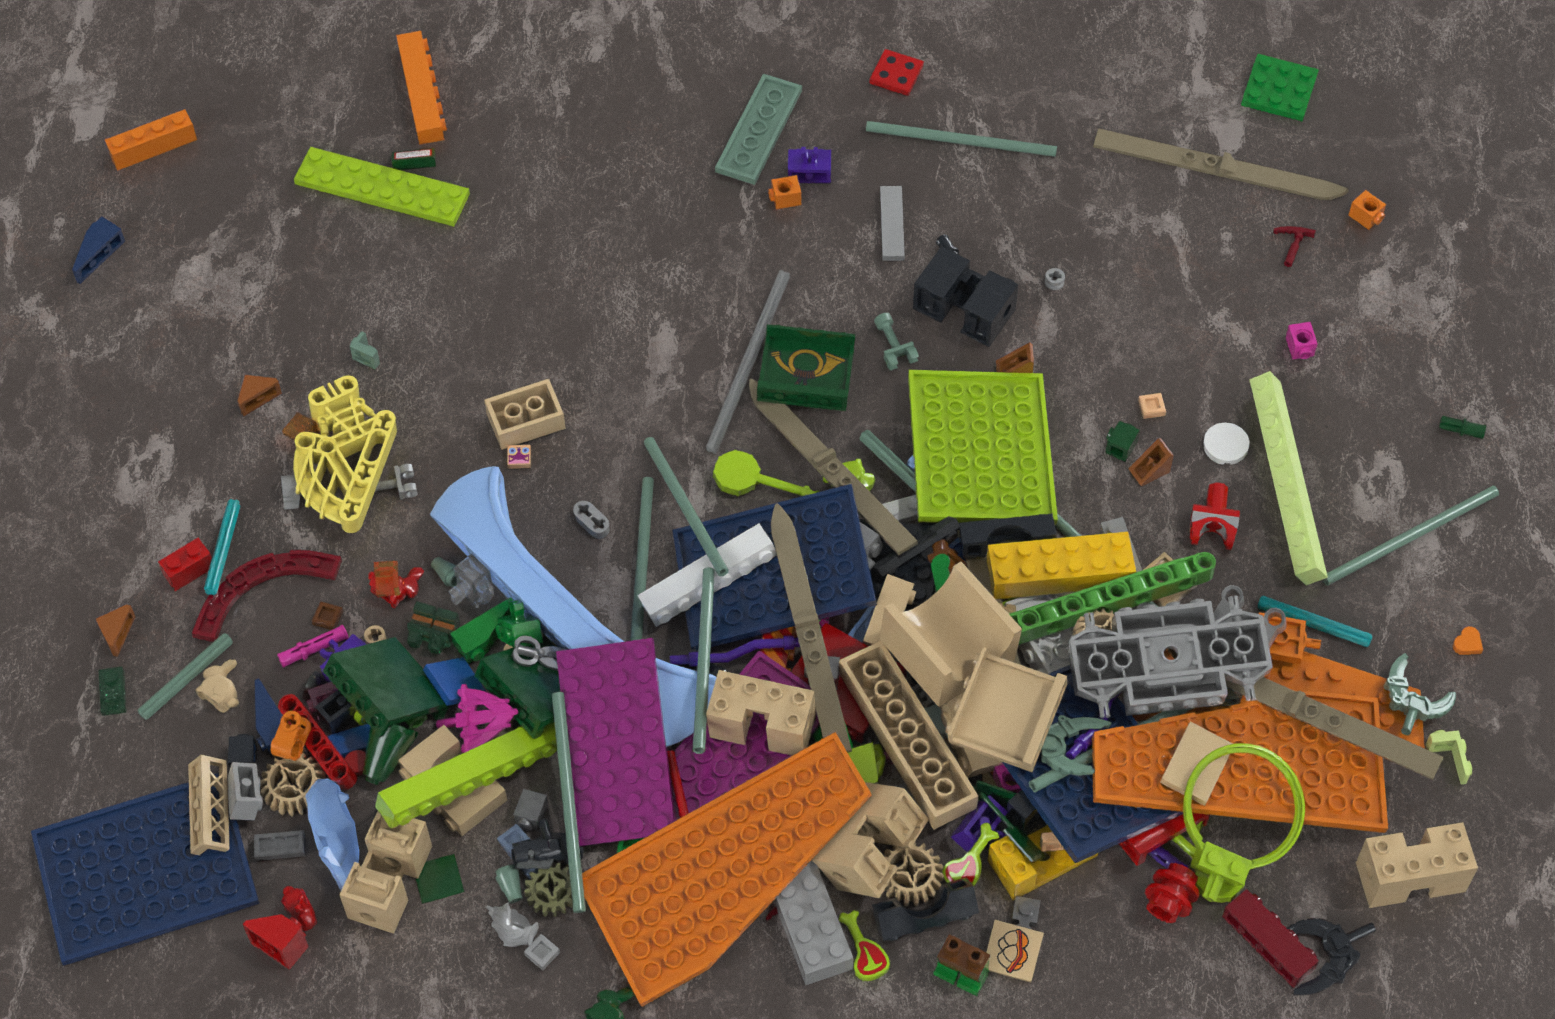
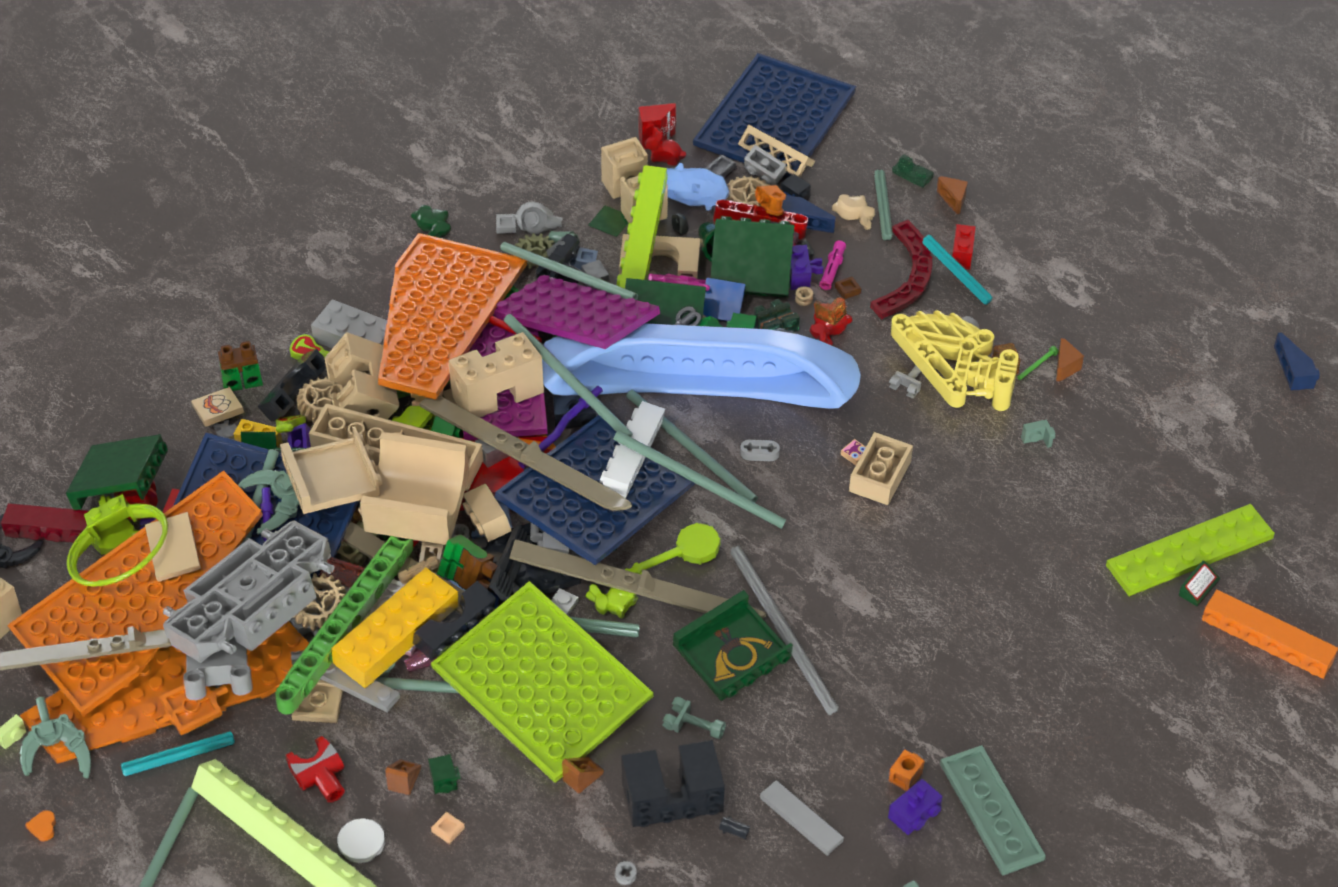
camera: 135 degrees right, 10 degrees down
(250, 415) = (1052, 351): none -> bright green piece
(1055, 651) = (344, 571): none -> clear red tile
(1175, 918) = (118, 468): none -> dark green panel

